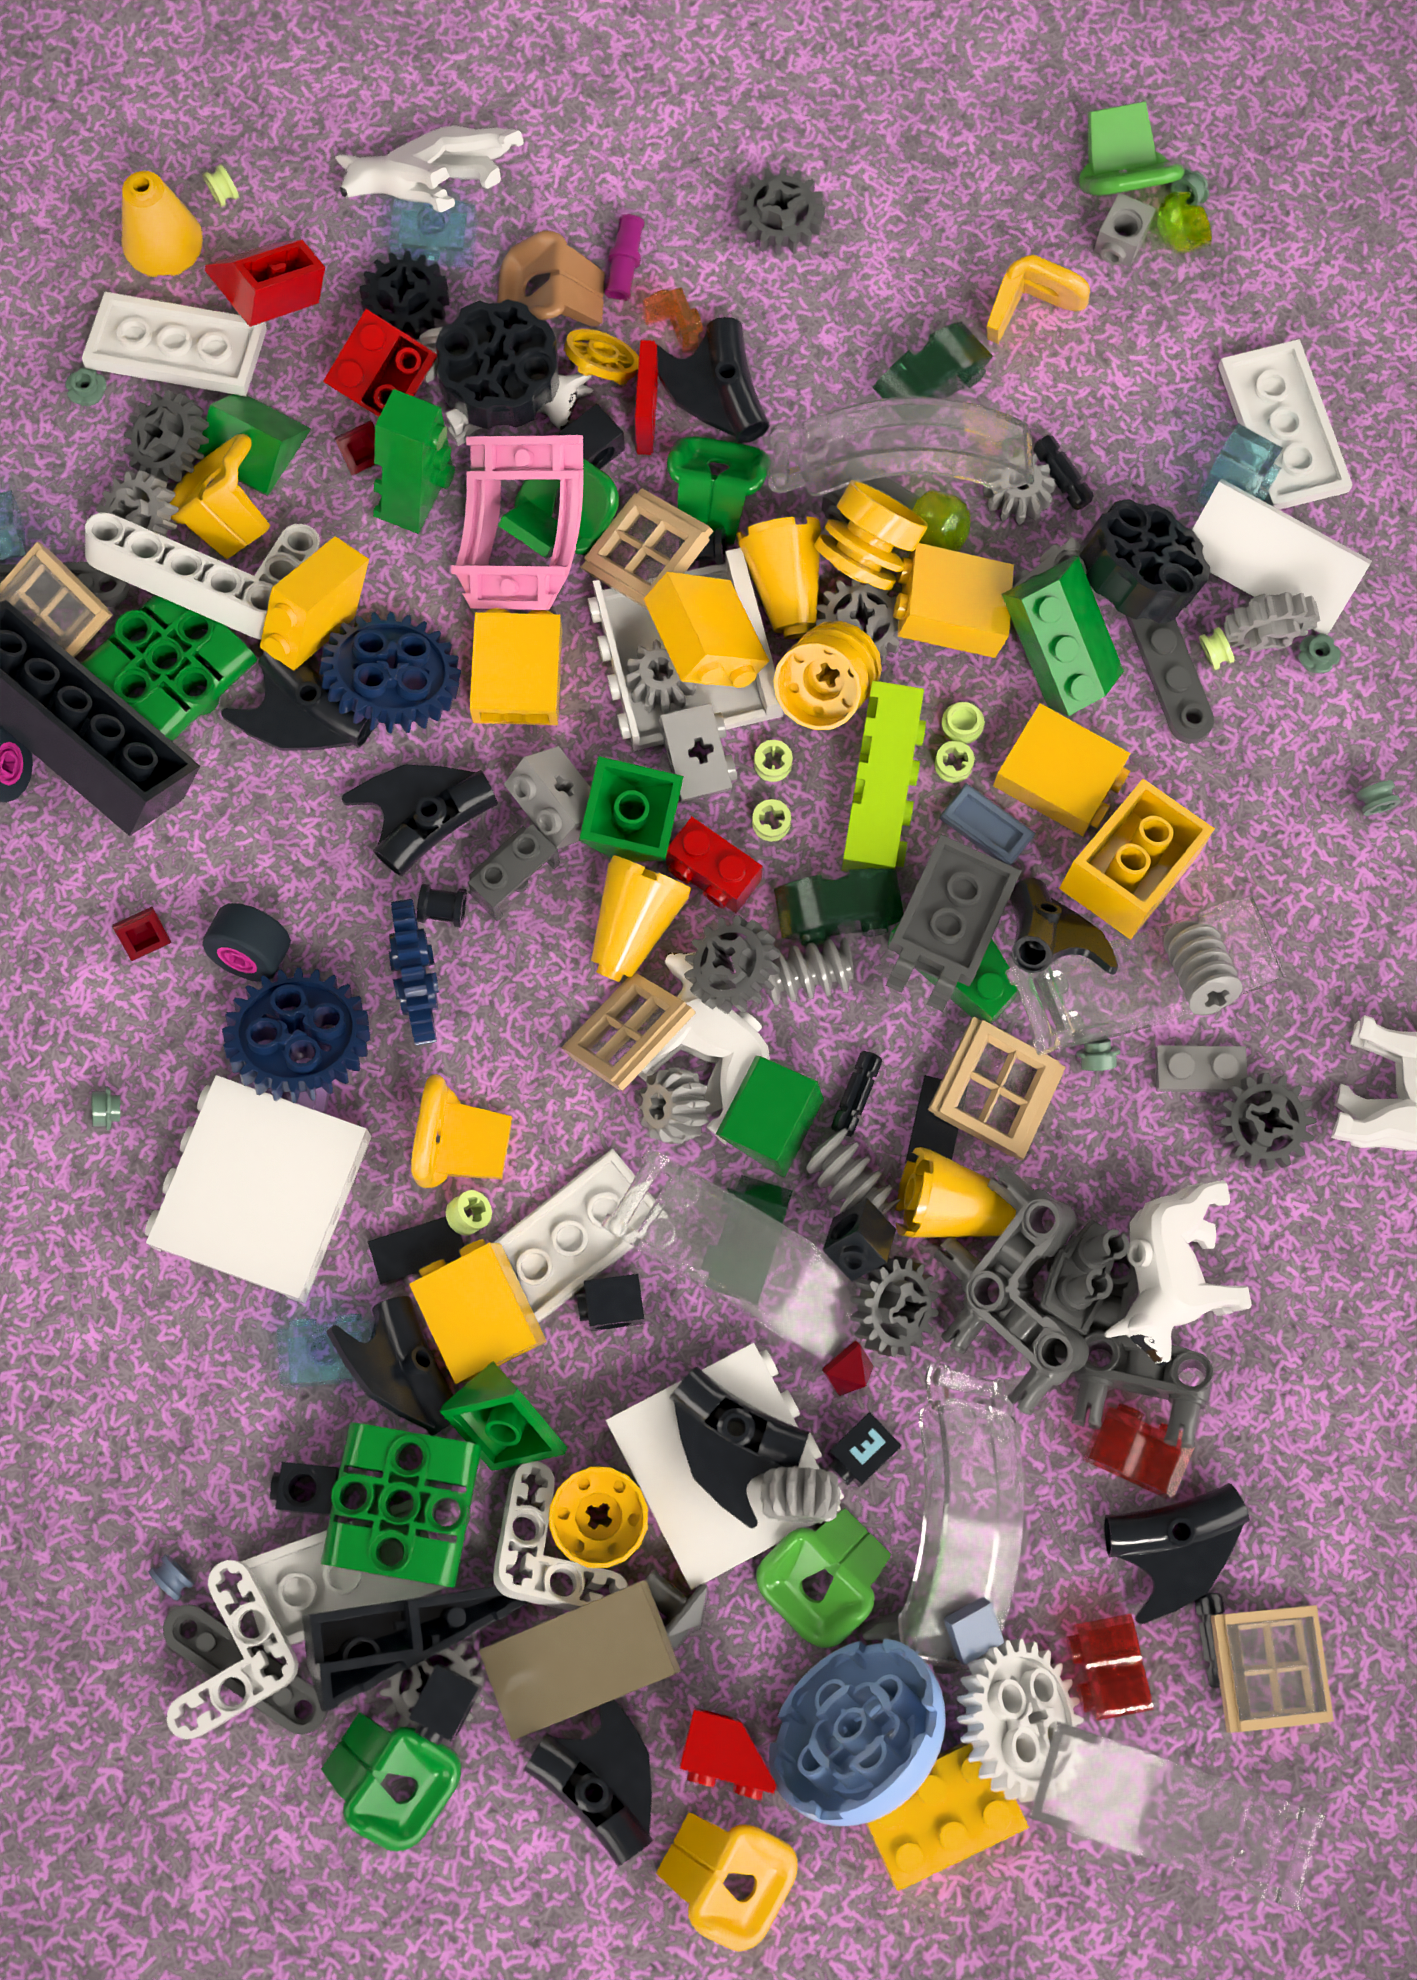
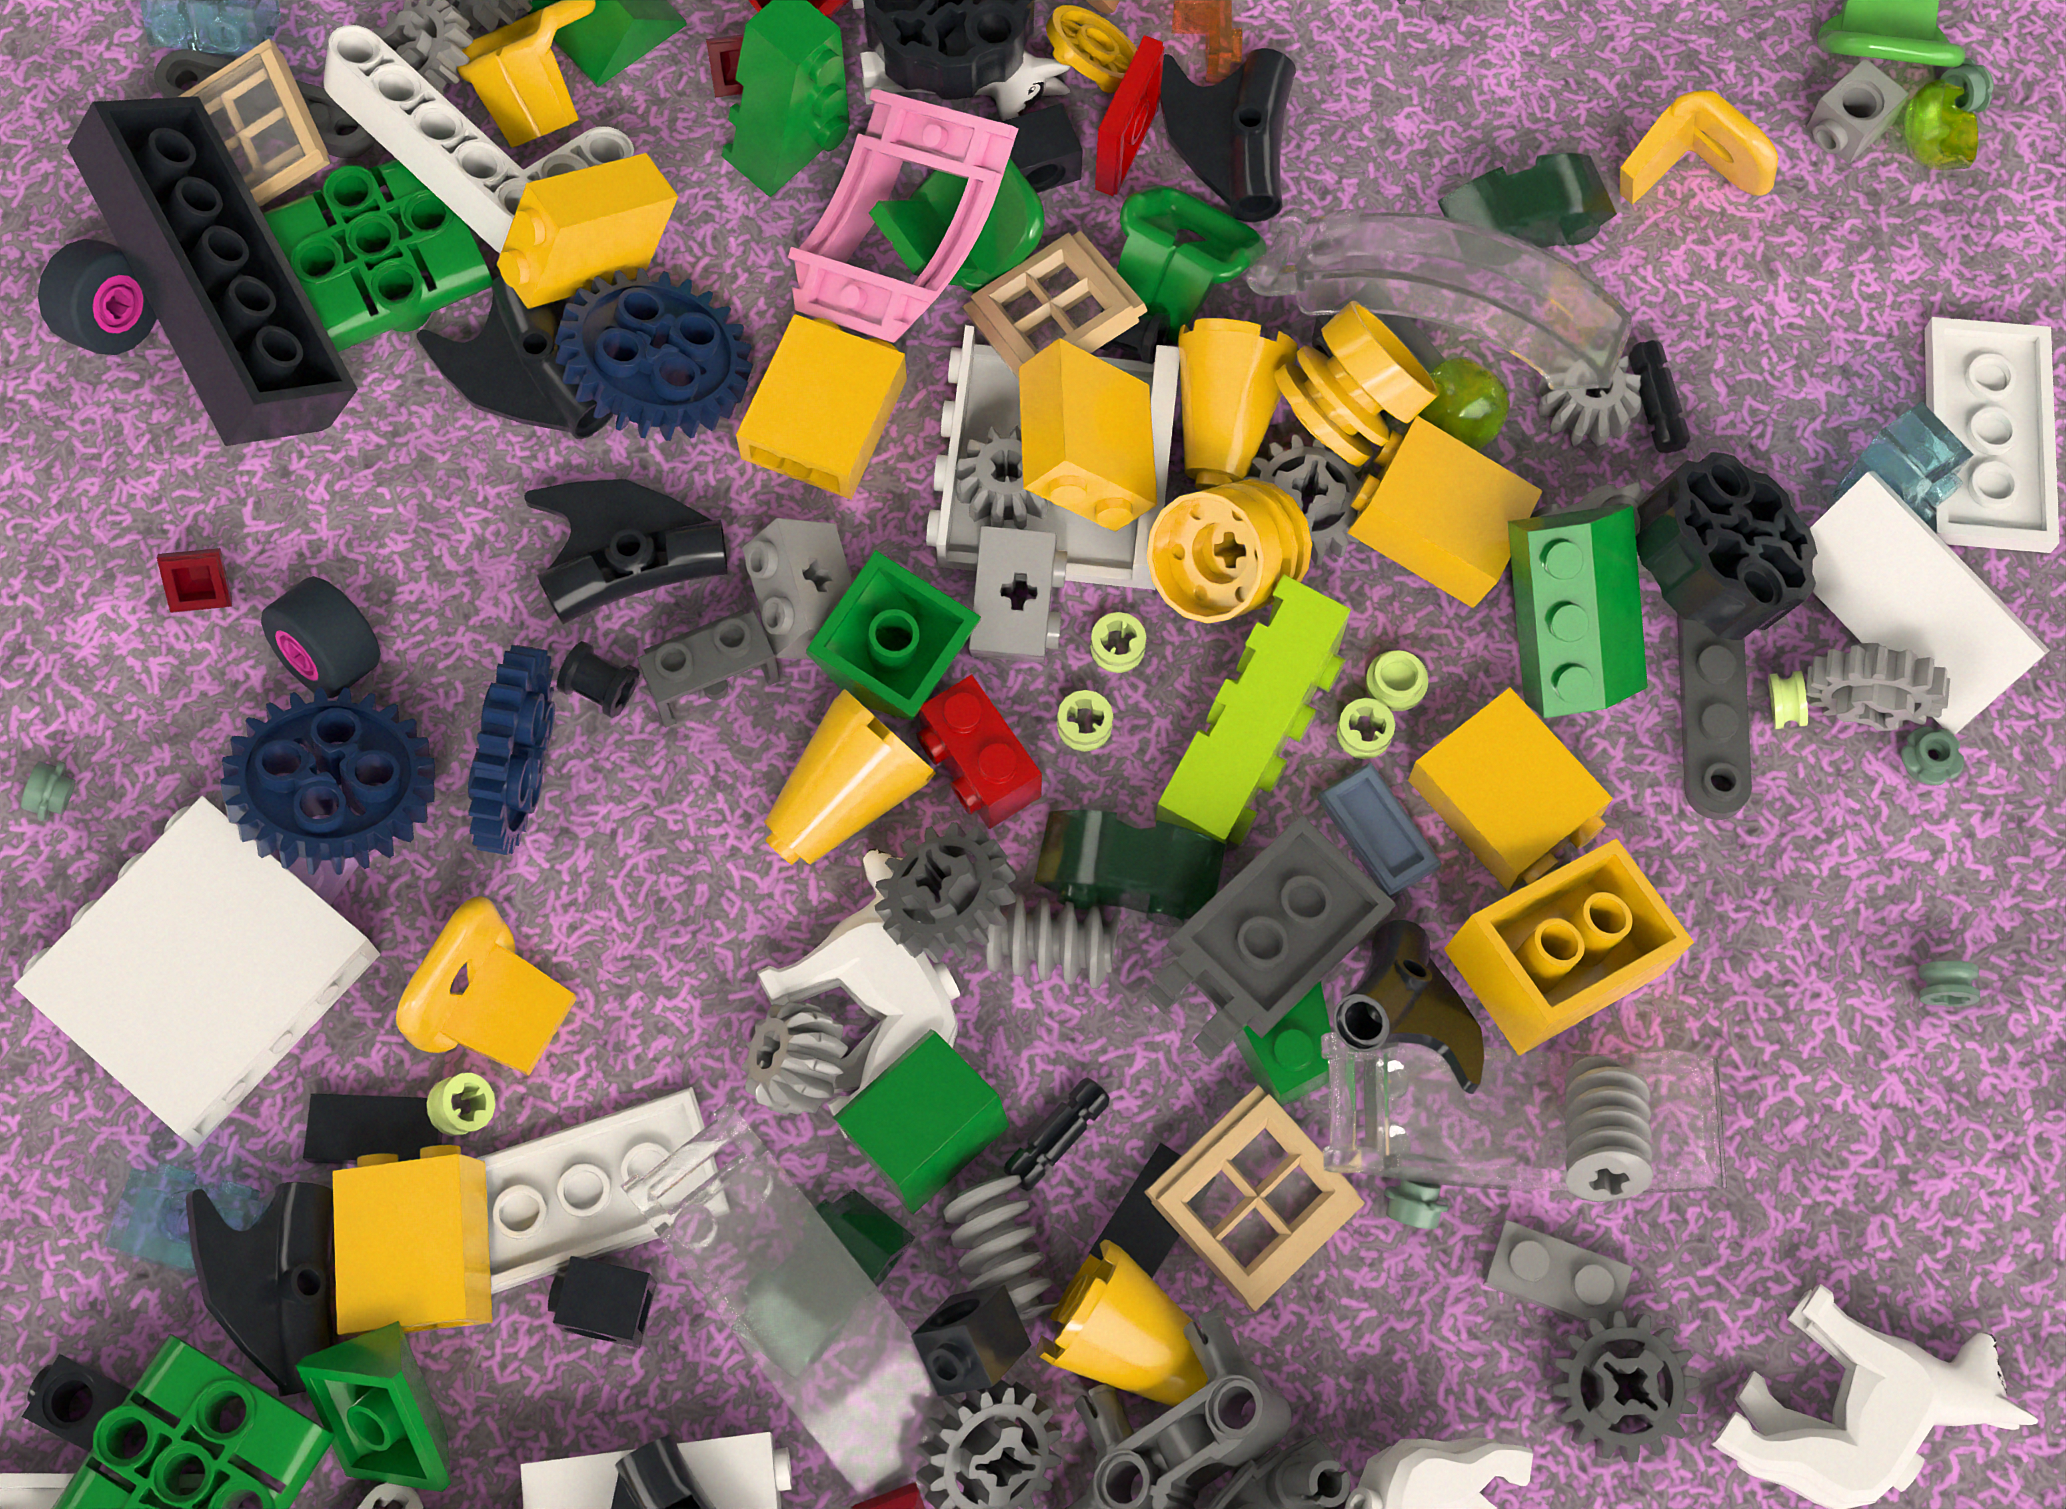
camera: 20 degrees right, 5 degrees down
(628, 1031) = (773, 934): tan piece -> none

